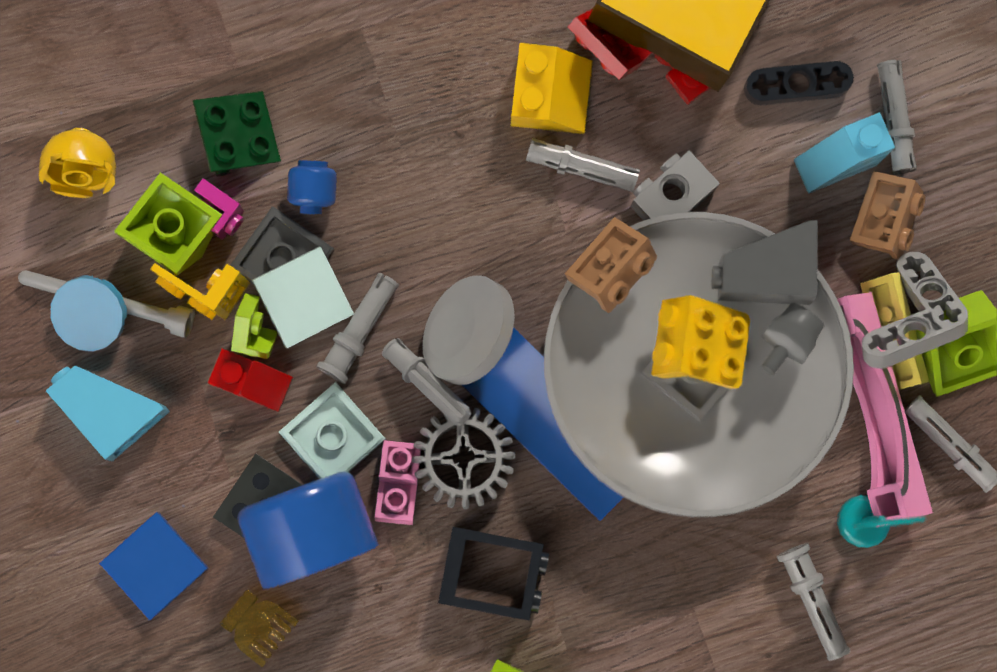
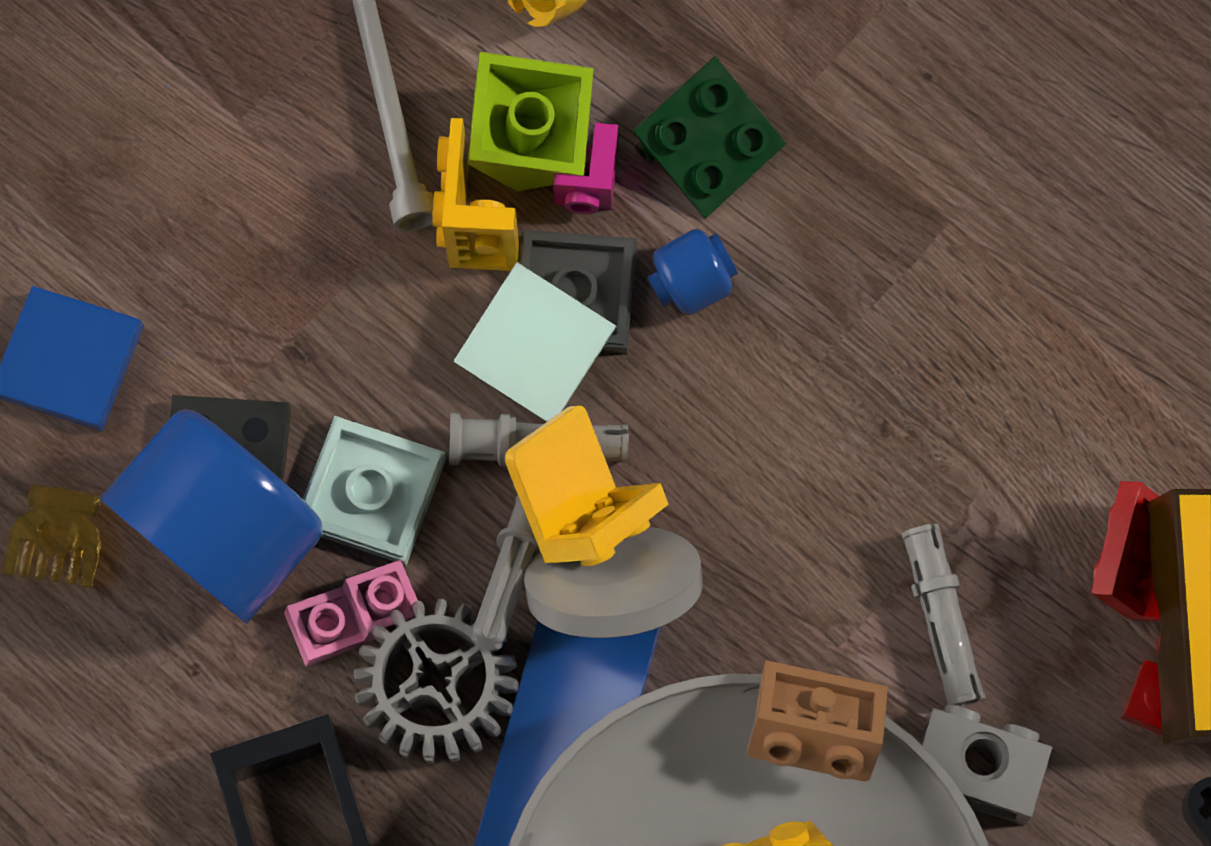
camera: 65 degrees right, 10 degrees down
(88, 313) = (356, 88): dark azure tile -> none
(103, 410) = (238, 179): medium azure slope -> none
(248, 333) = (447, 296): lime bracket -> none
(250, 380) = (385, 342): red slope -> none
(411, 326) = (572, 493): none -> yellow bracket
(551, 89) = (1021, 511): yellow slope -> none

